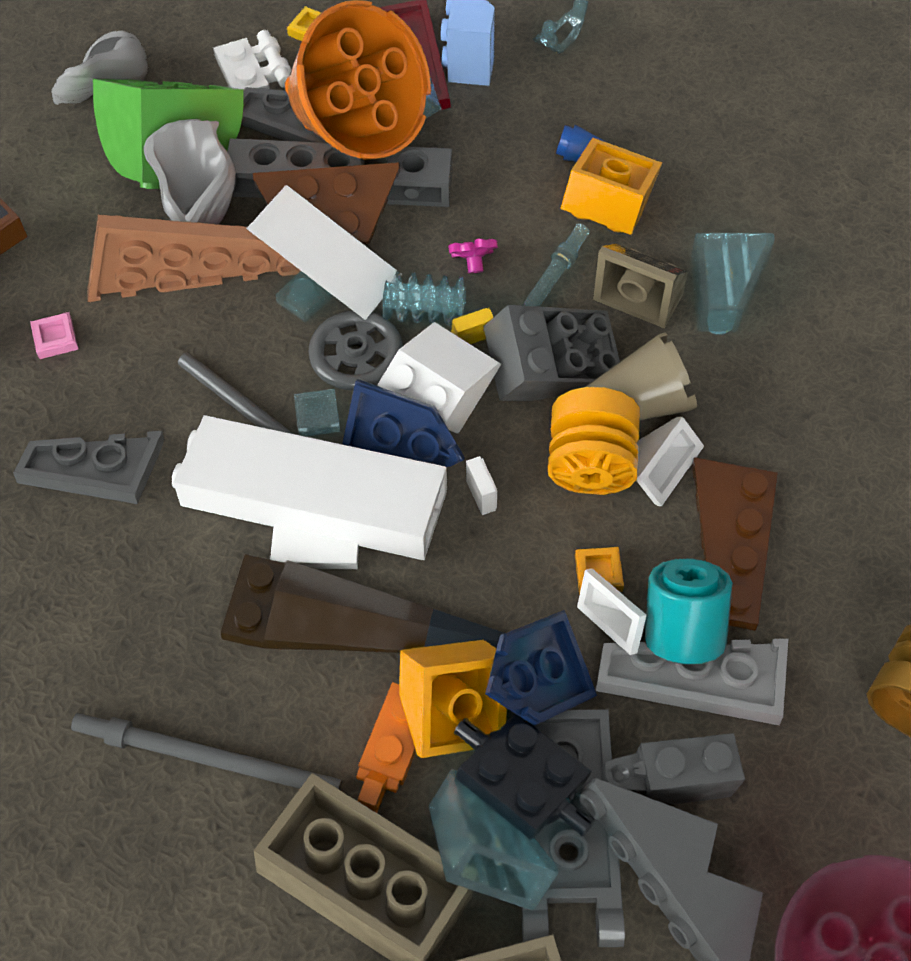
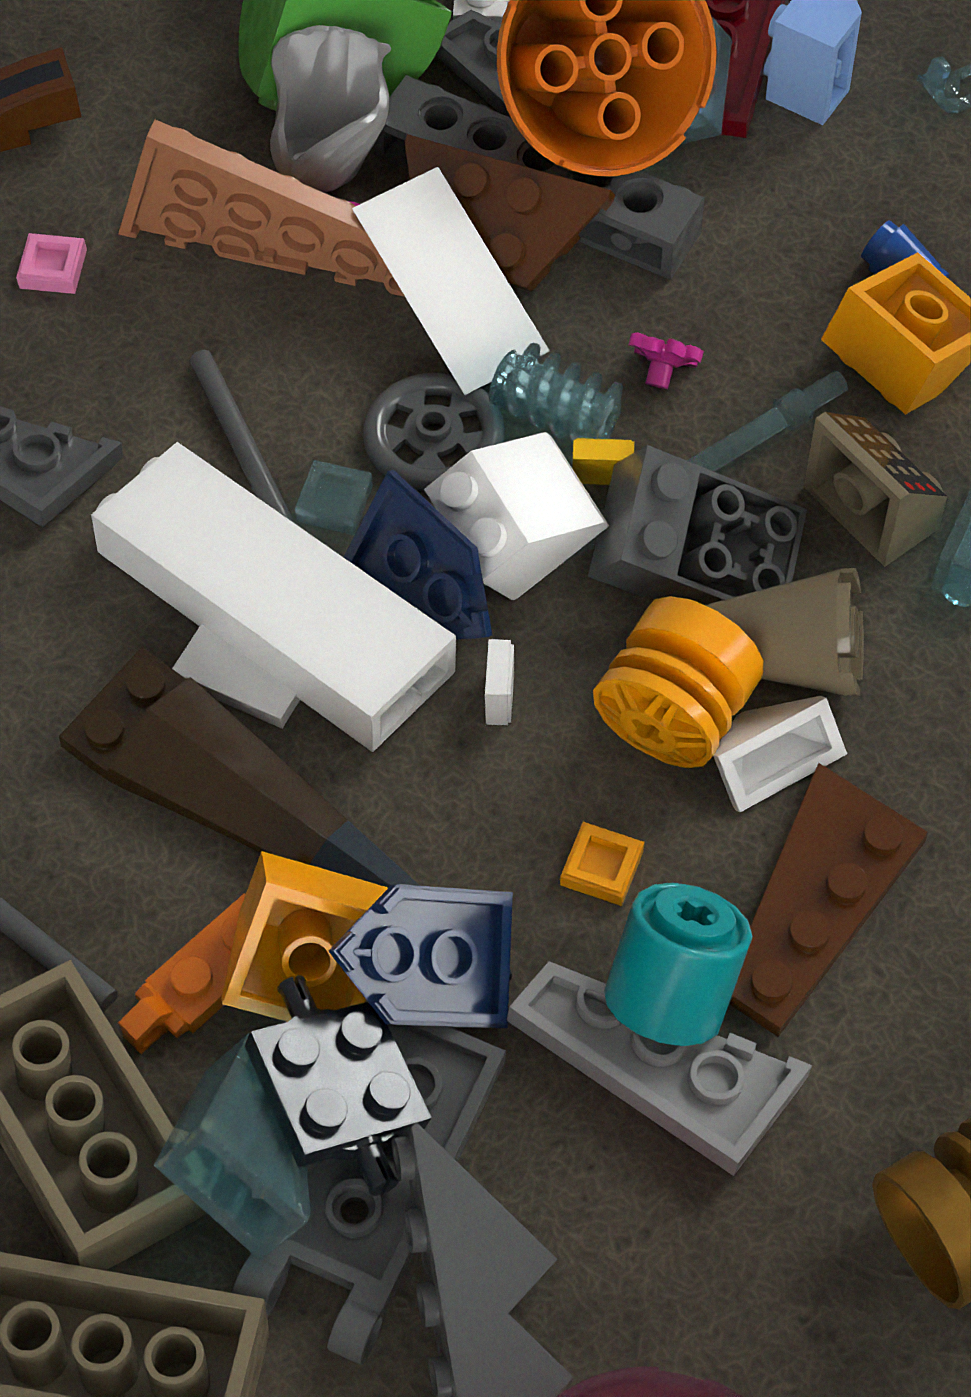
camera: 25 degrees right, 0 degrees up
(302, 296) = (397, 333): clear light blue plate -> none
(611, 611) = (582, 925): white slope -> none
(680, 769) = (550, 1169): dark grey hinge -> none

